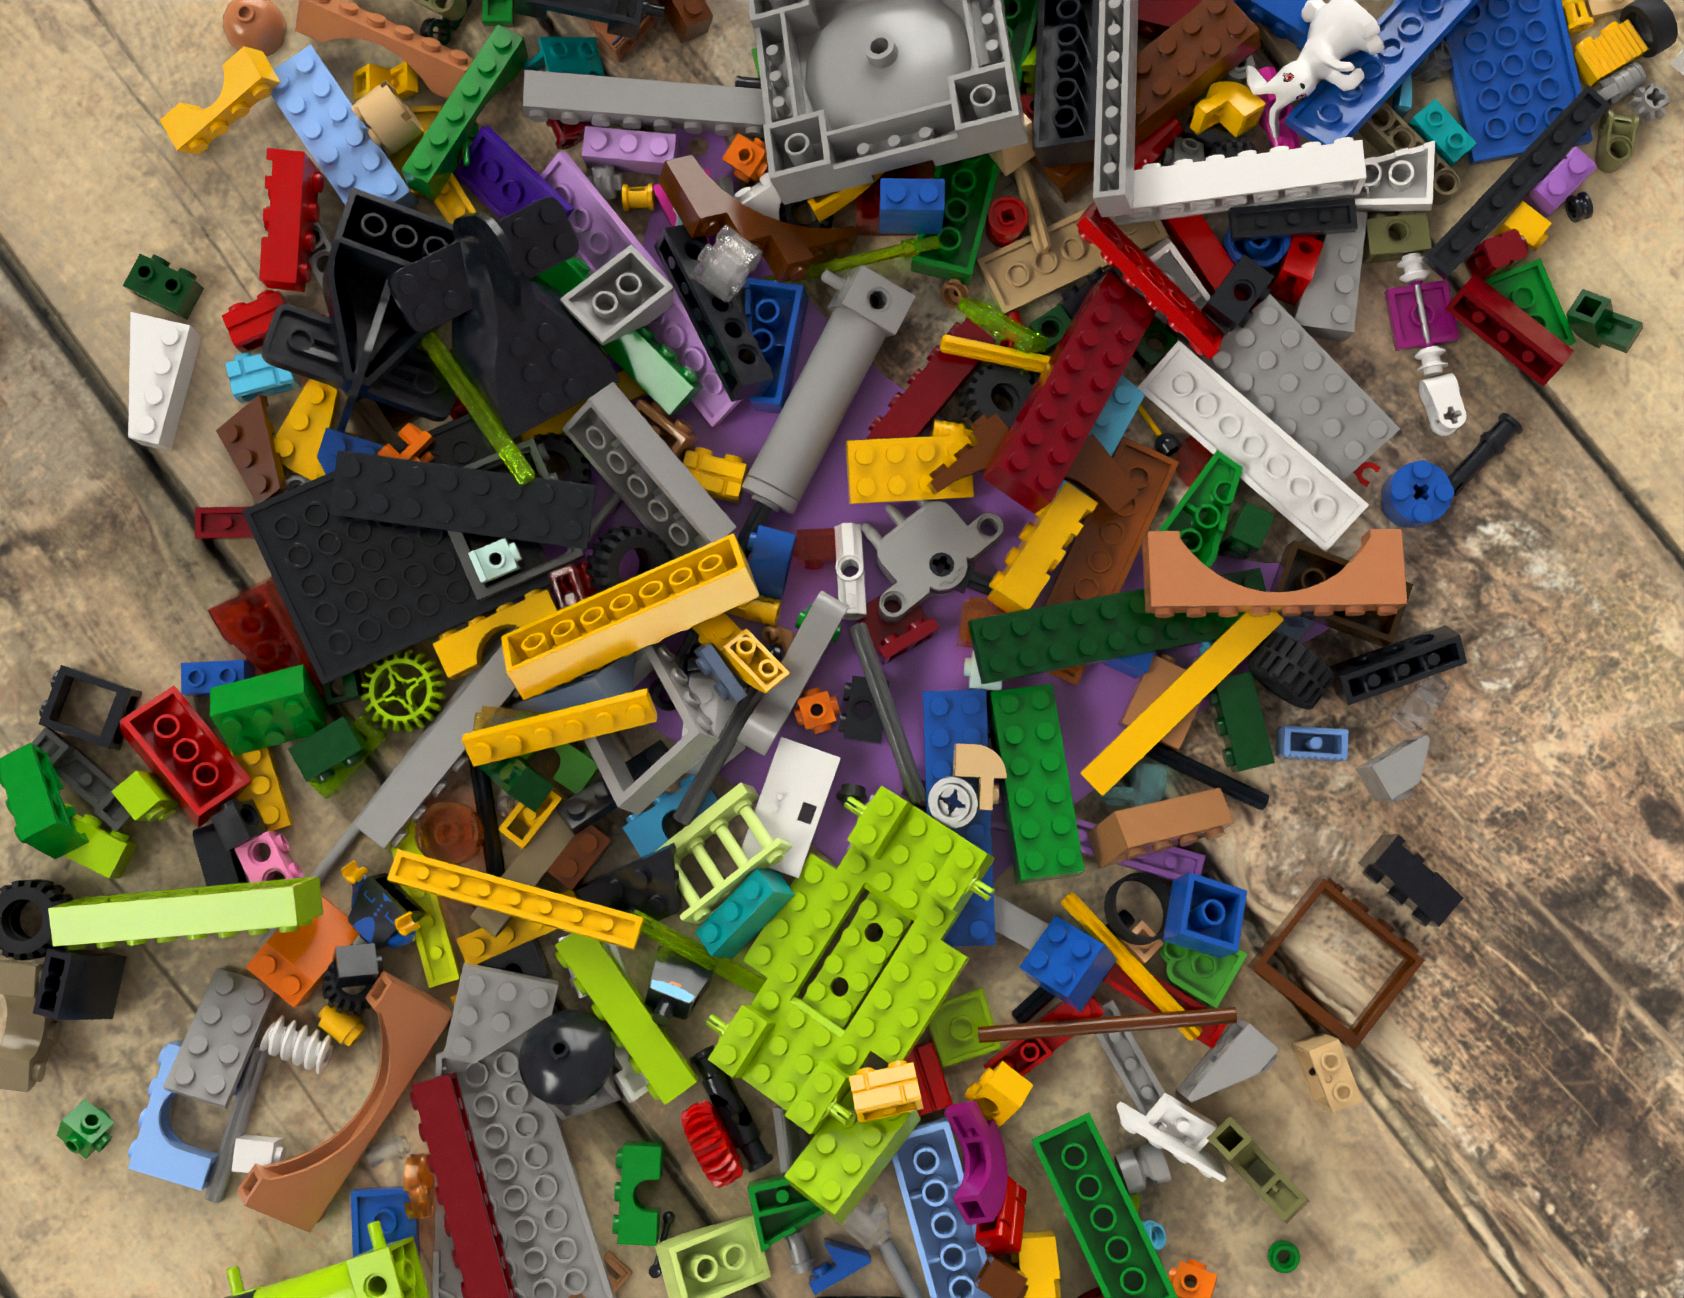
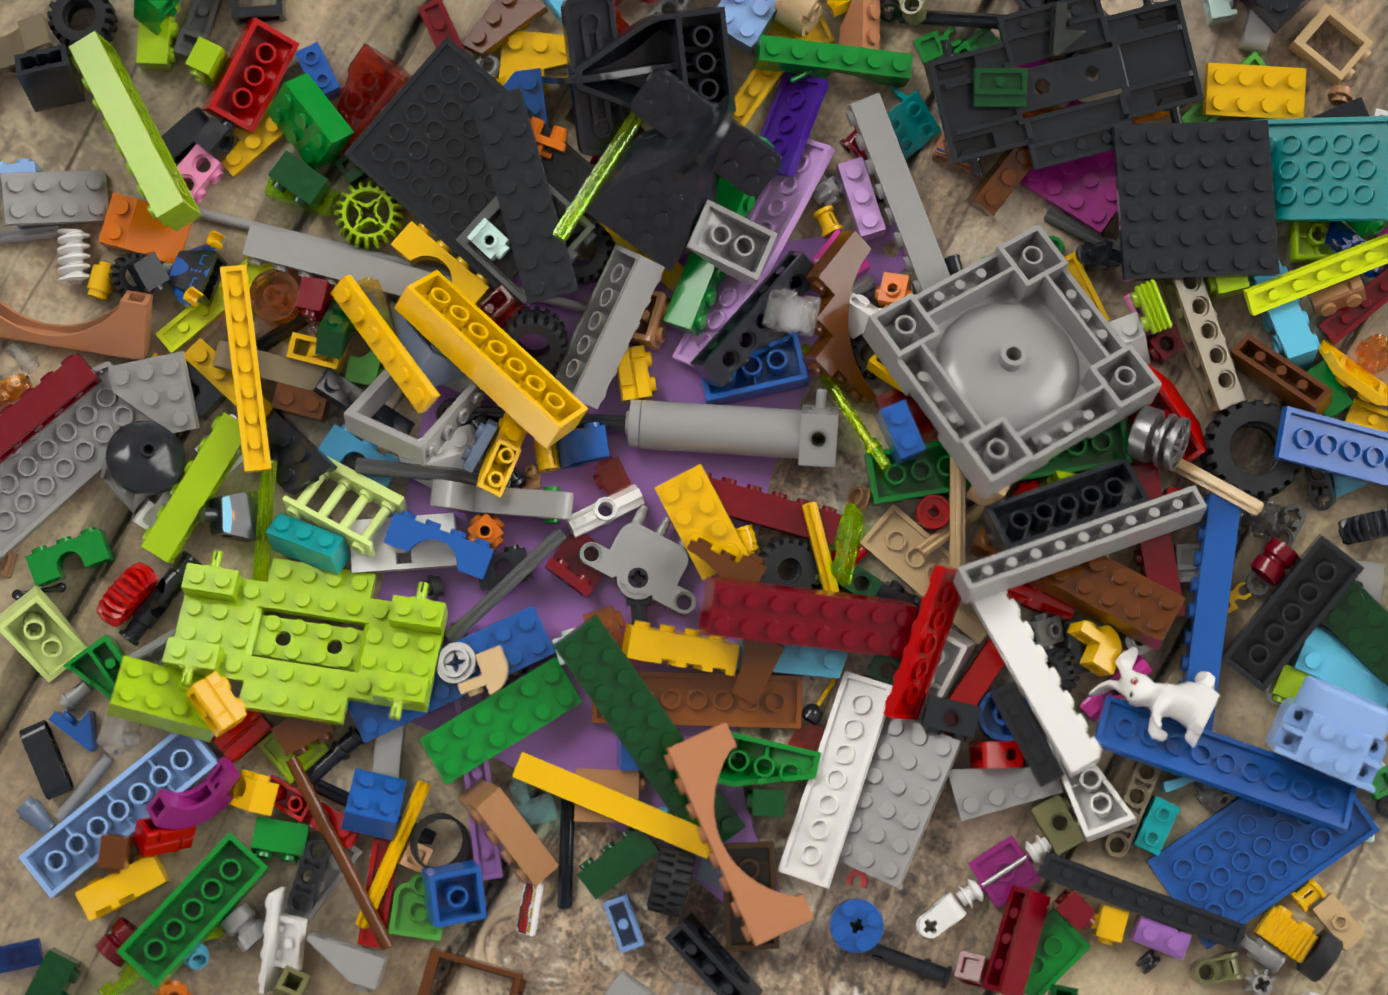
camera: 65 degrees right, 0 degrees up
(472, 788) = (314, 299): none -> dark red brick
(783, 794) = (407, 532): none -> blue arch
(954, 1017) = (297, 734): none -> reddish brown brick
(989, 978) = (339, 751): none -> black pin
(1019, 190) = (957, 515): none -> tan axle
(1061, 1086) = (279, 839): none -> green brick
(1128, 1081) = (300, 886): none -> black beam
(1253, 842) = (529, 909): none -> slope
(1516, 390) = (971, 968): none -> brick

